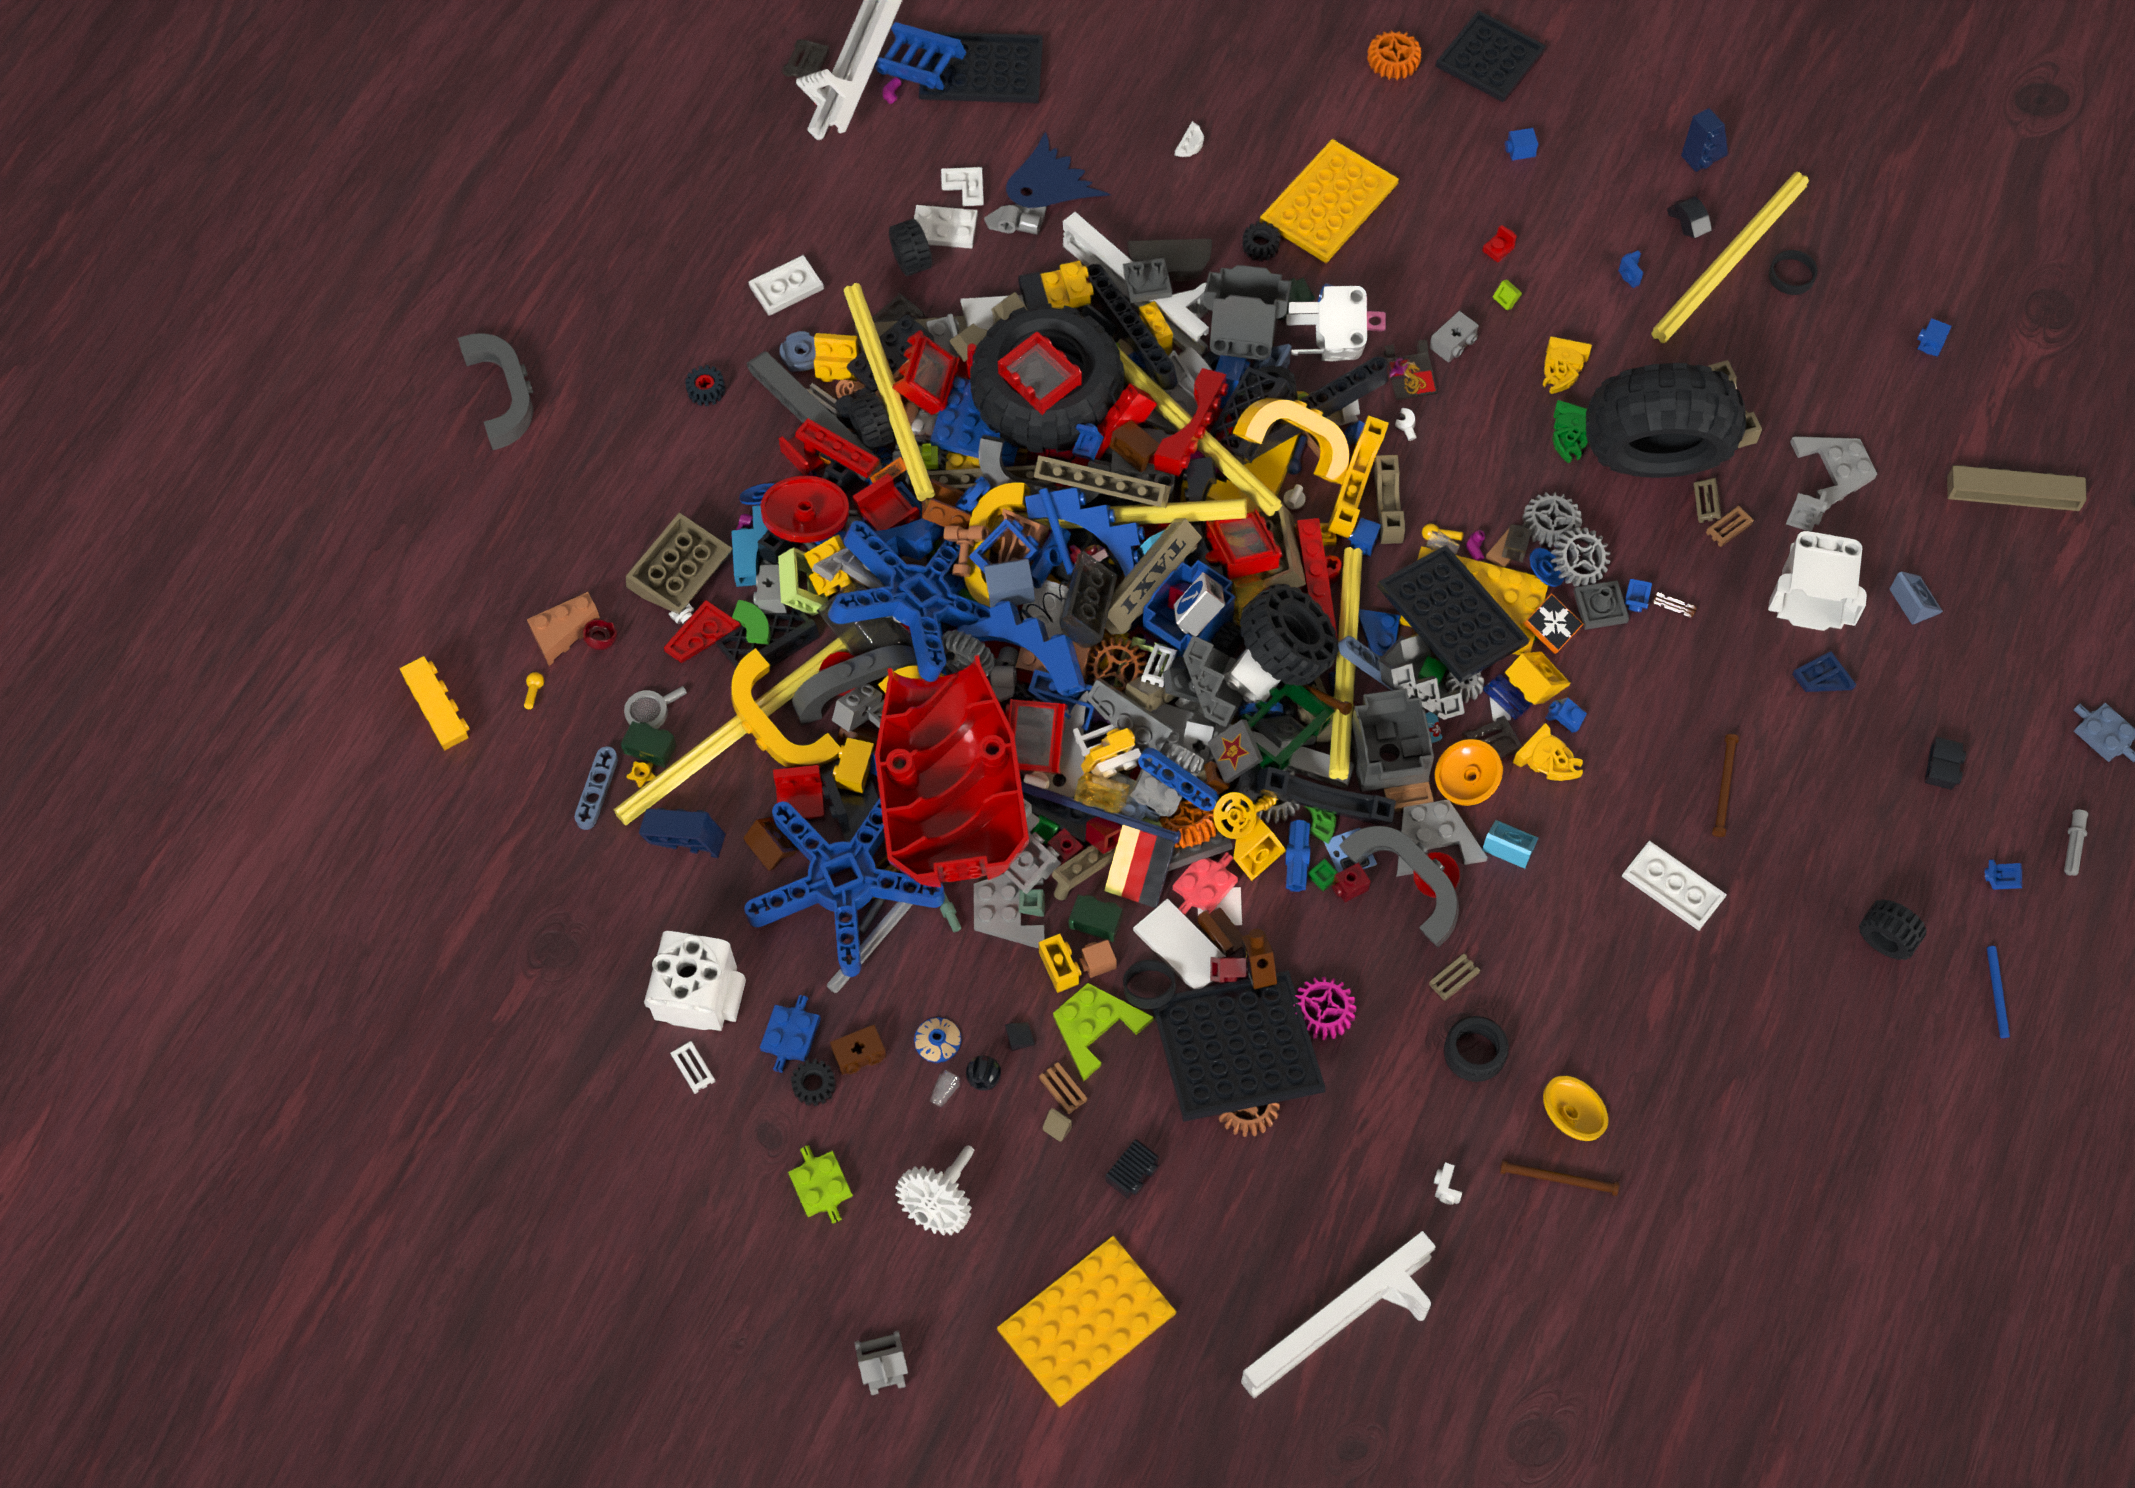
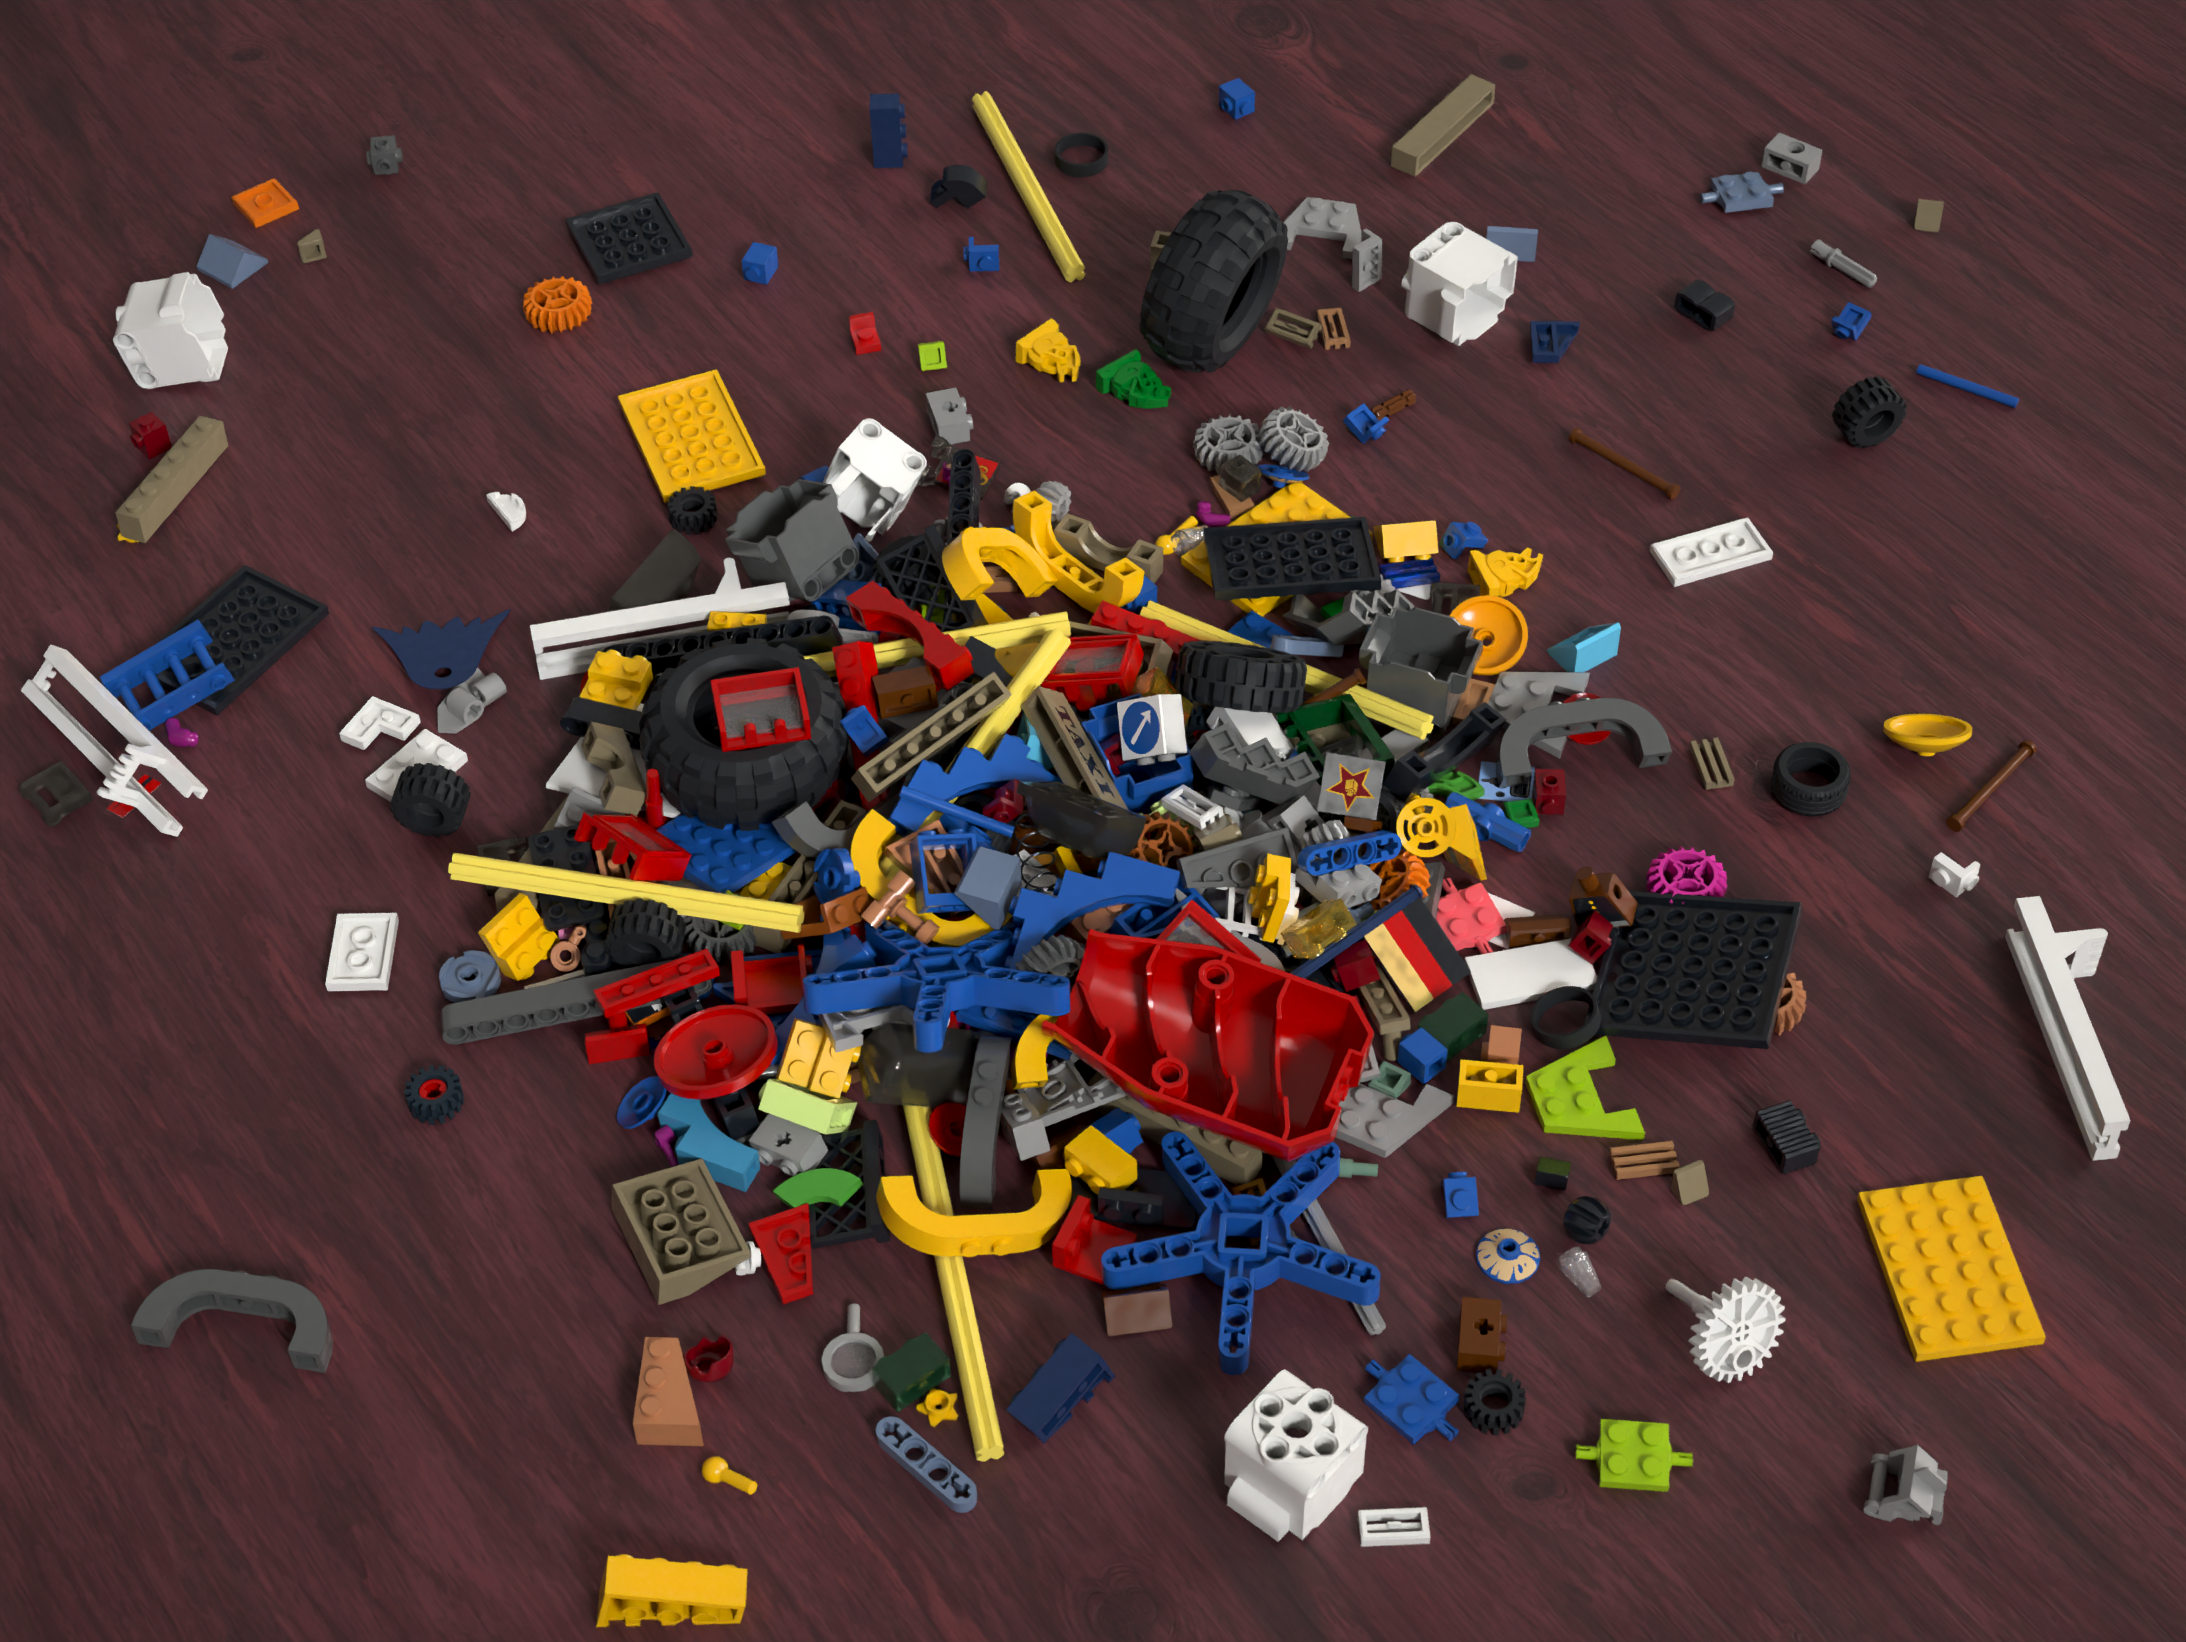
camera: 60 degrees left, 15 degrees down
(893, 469) = (721, 952): sticker -> none
(964, 987) = (1460, 1195): none -> blue bracket
(1060, 910) = (1422, 1055): none -> blue brick
(1147, 280) = (683, 597): dark grey plate -> none
(1409, 441) = (1059, 497): none -> light grey gear
(1553, 623) = (1352, 498): tile -> none
(1601, 605) = (1355, 455): dark grey plate -> none

